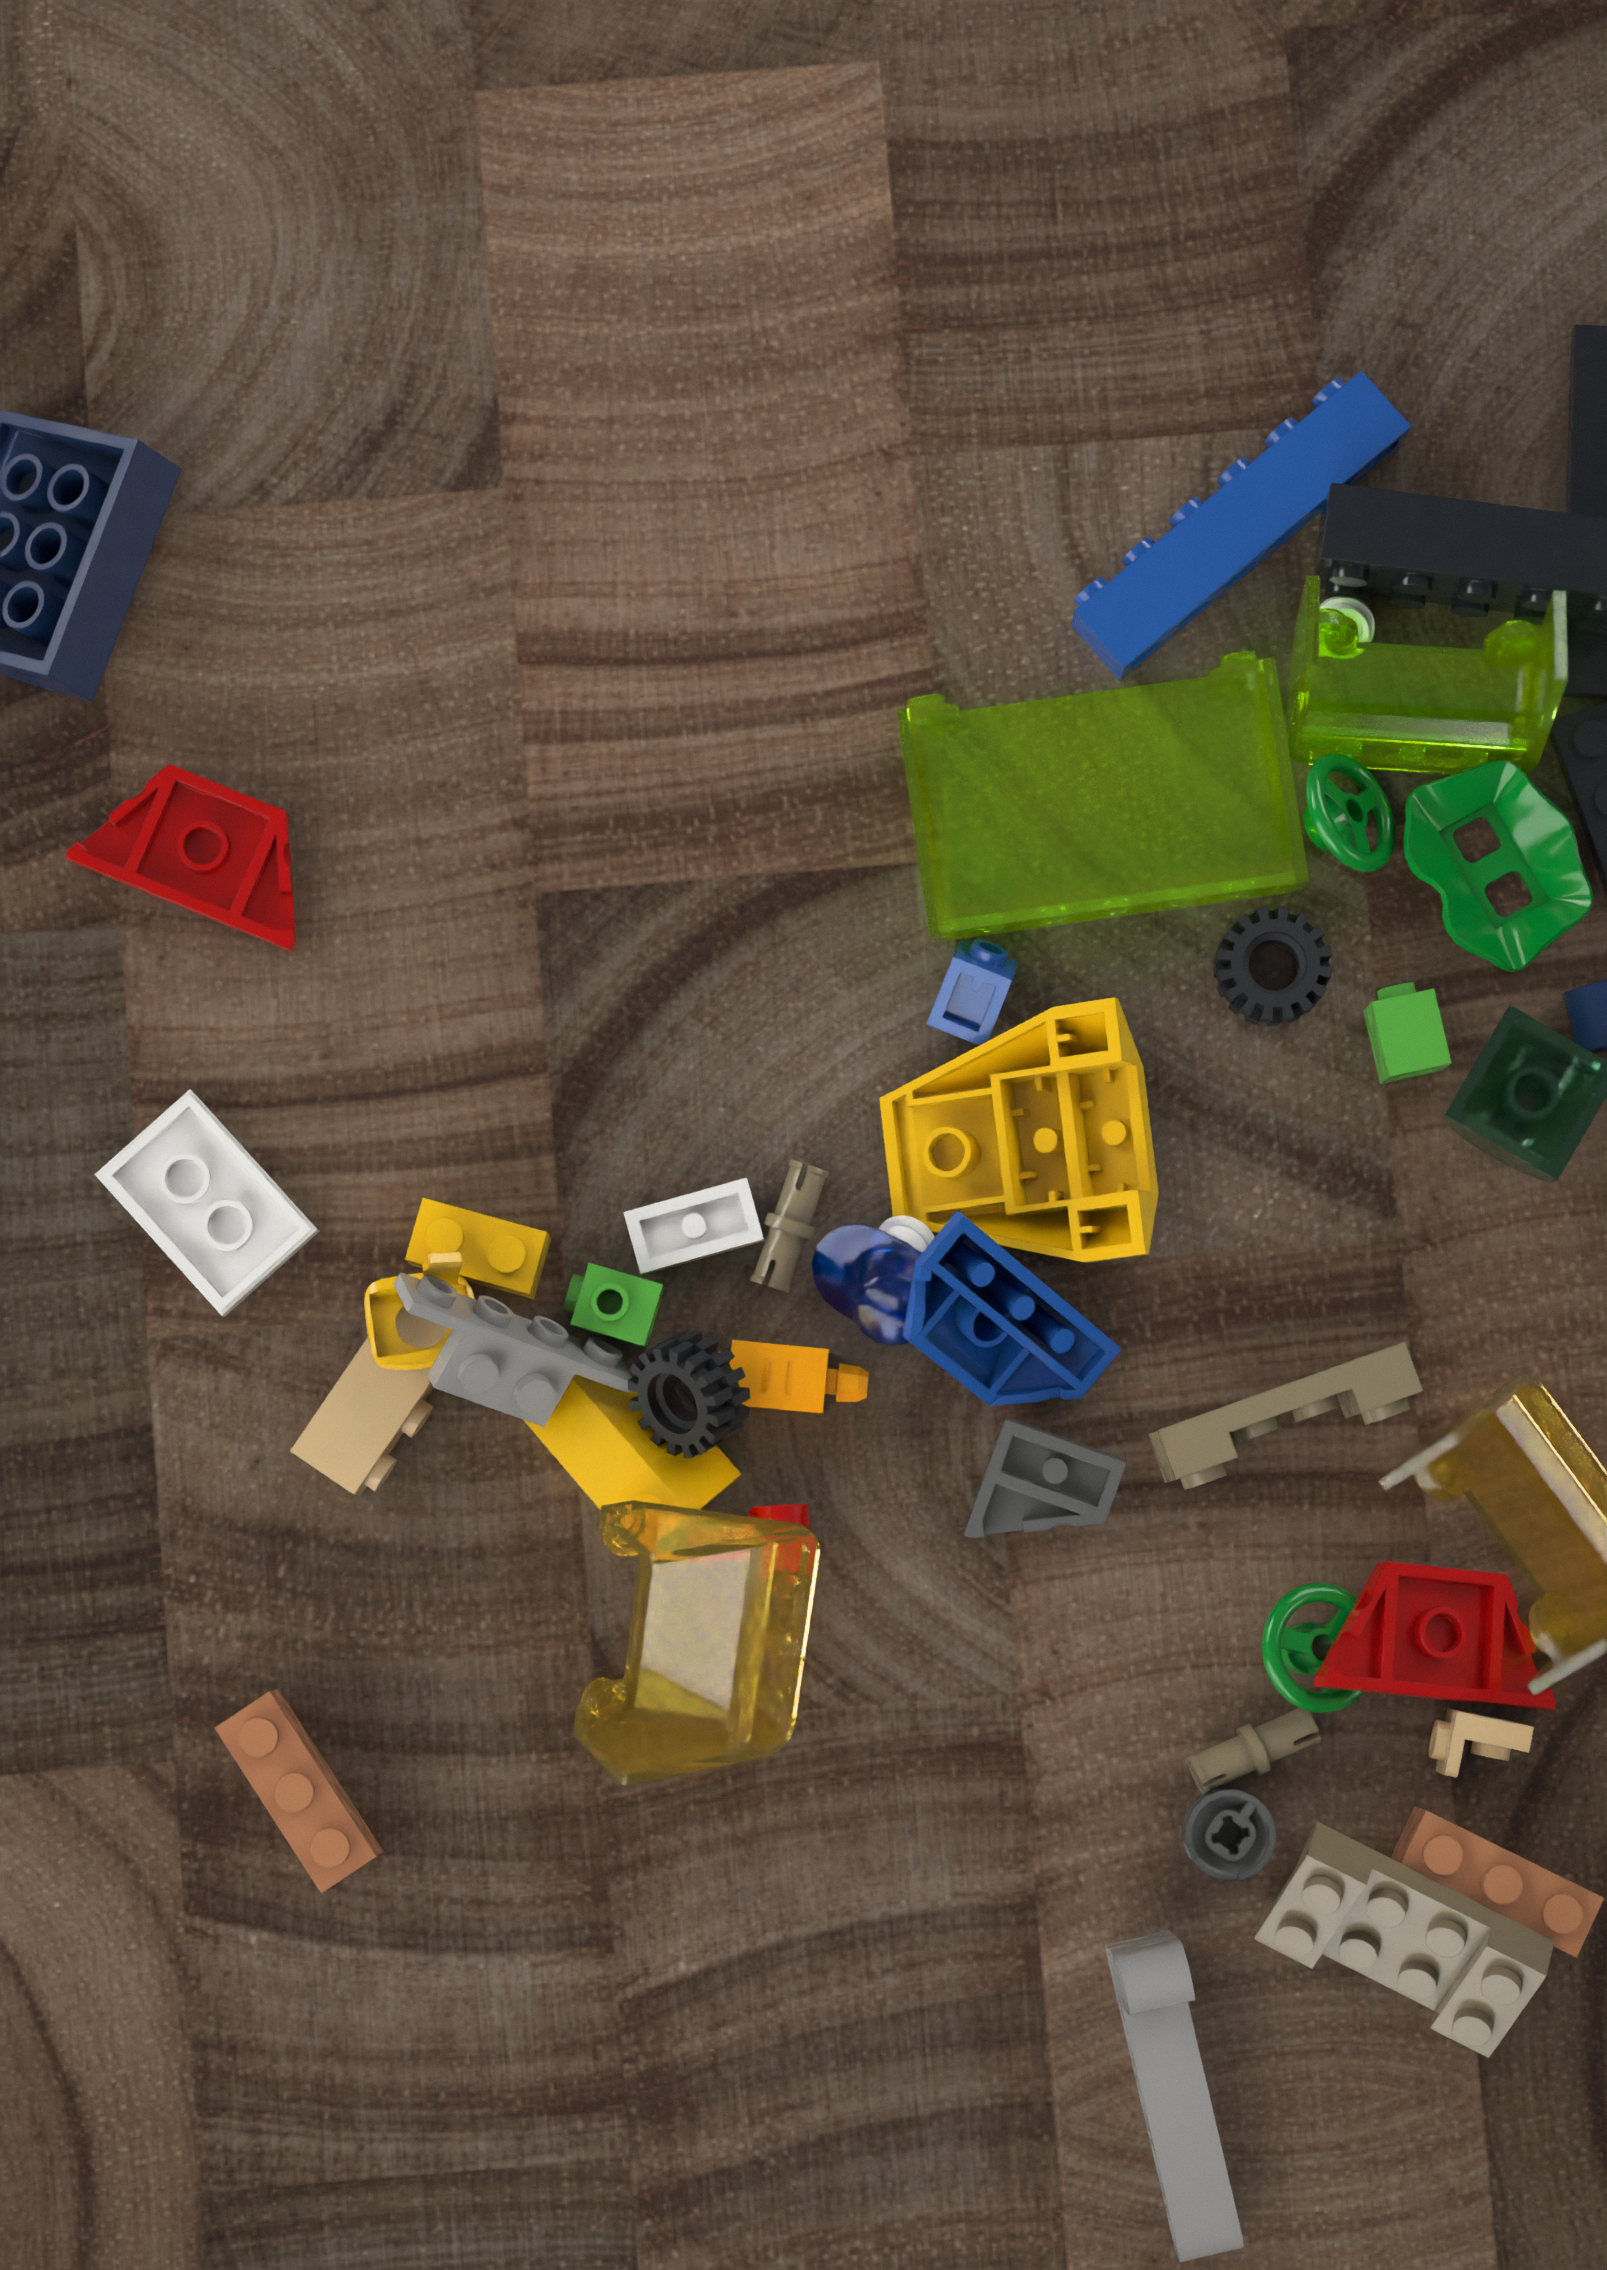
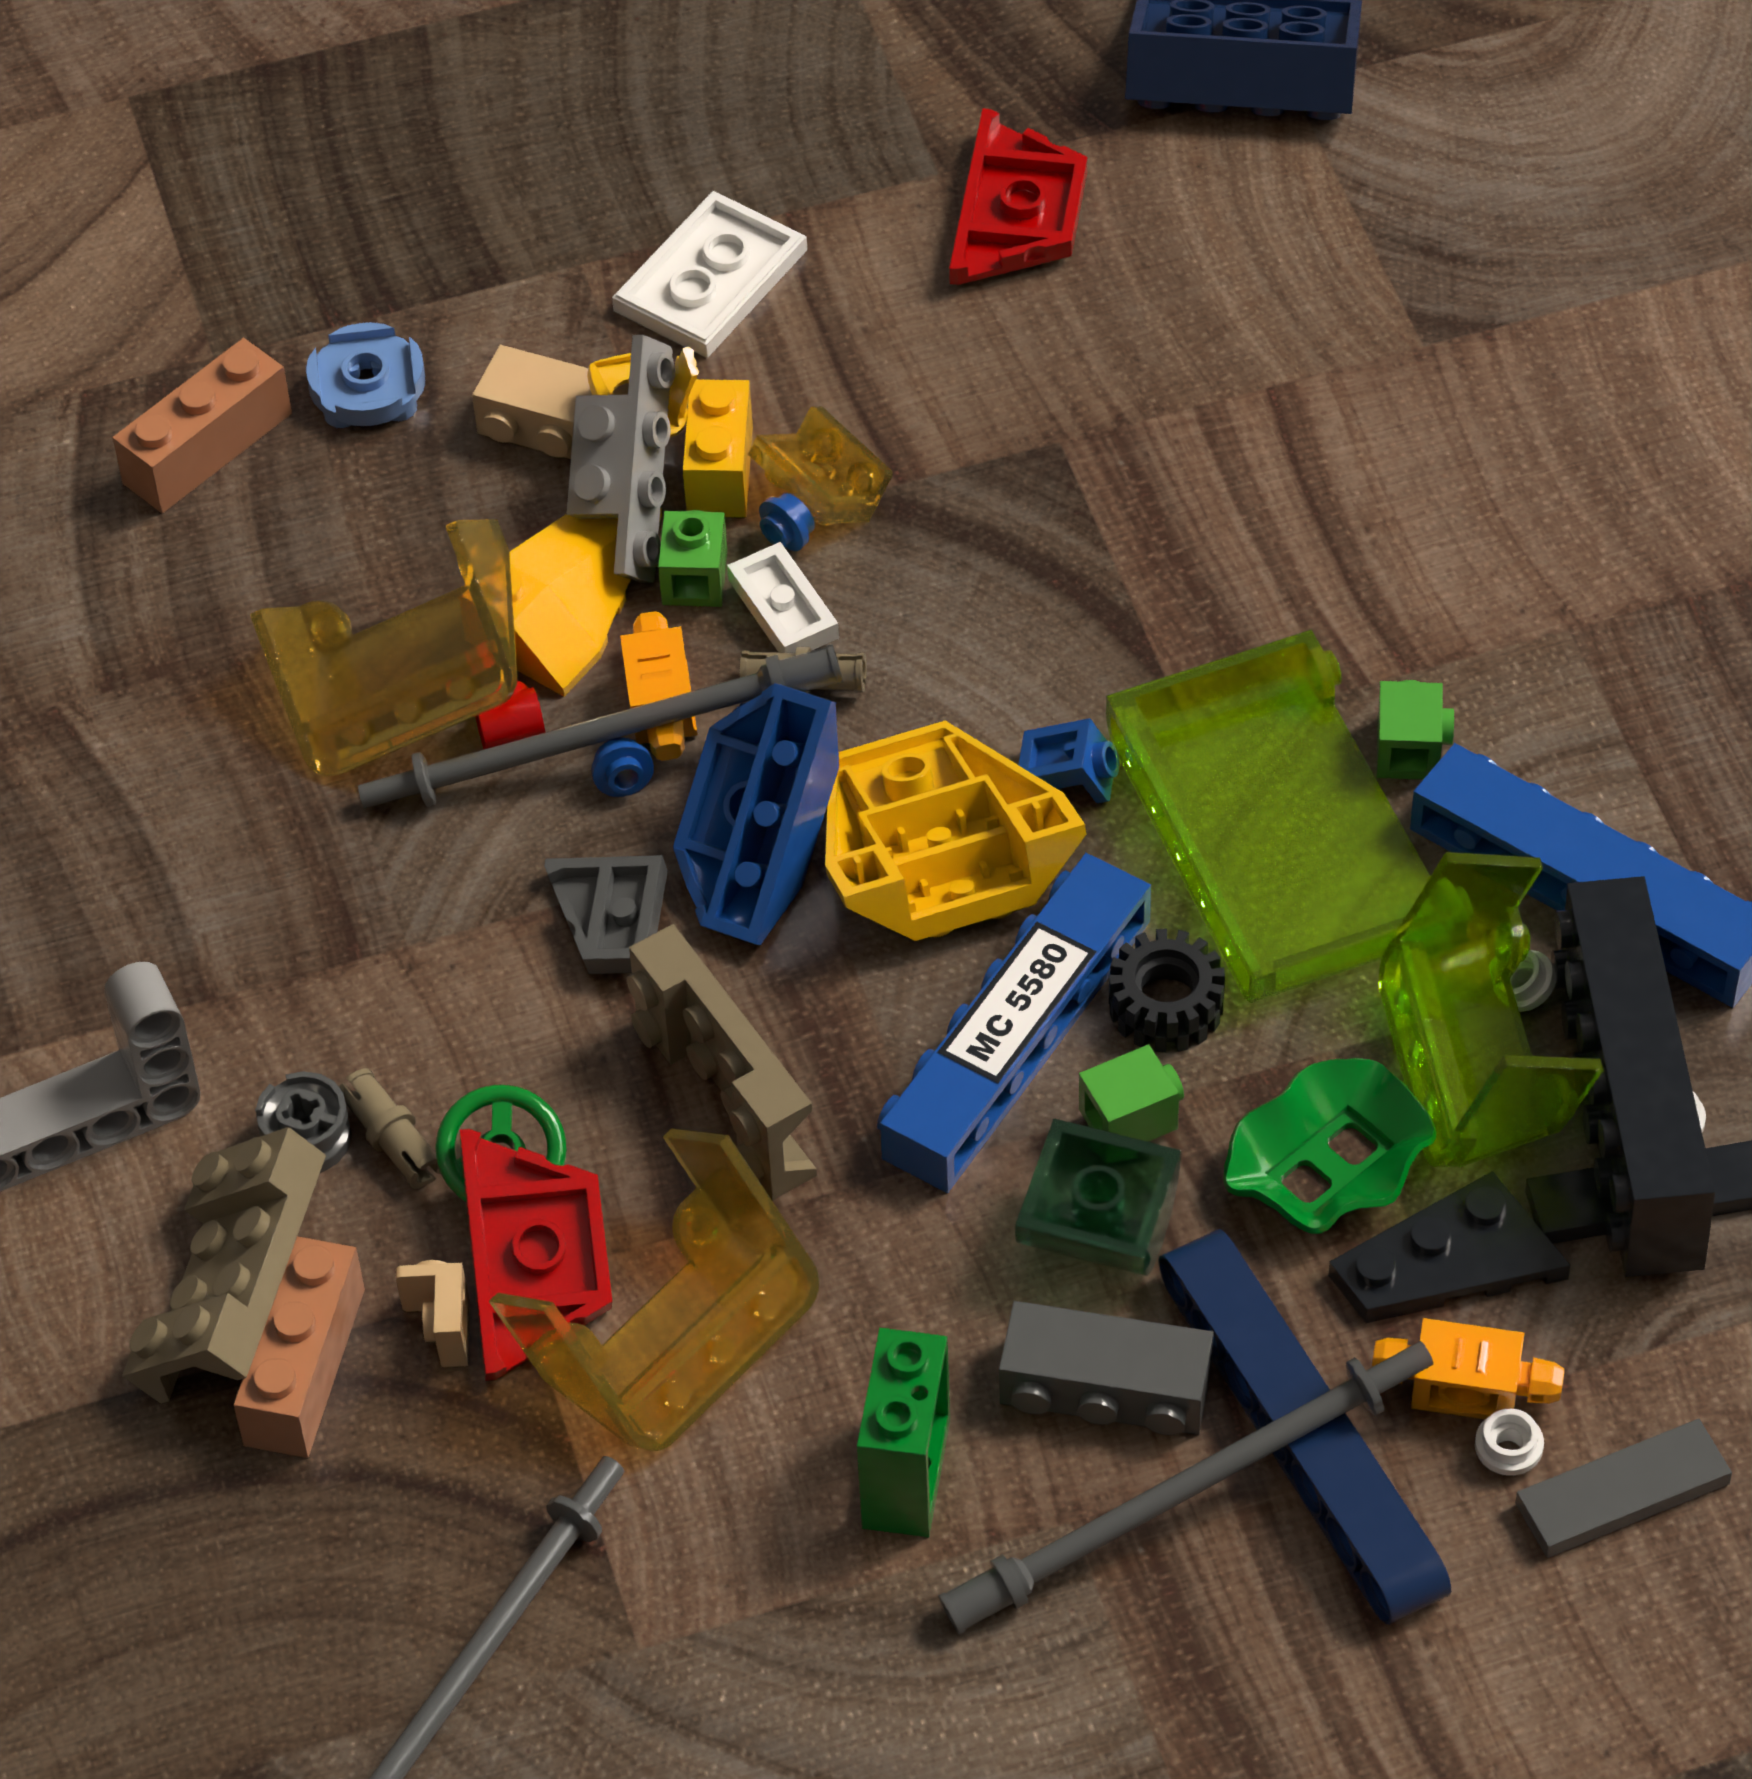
camera: 80 degrees right, 30 degrees down
(234, 1625) = (371, 401): none -> medium blue plate
(535, 1147) = (824, 469): none -> clear yellow bracket
(592, 1200) = (786, 521): none -> blue plate
(711, 1383) = (621, 601): black tyre -> none
(843, 1261) = (797, 672): none -> dark grey bar
(870, 1435) = (617, 756): none -> blue plate
(1020, 645) = (1411, 728): none -> bright green brick
(1279, 1120) = (1013, 1022): none -> blue brick
(1338, 819) = (1307, 1005): green piece -> none

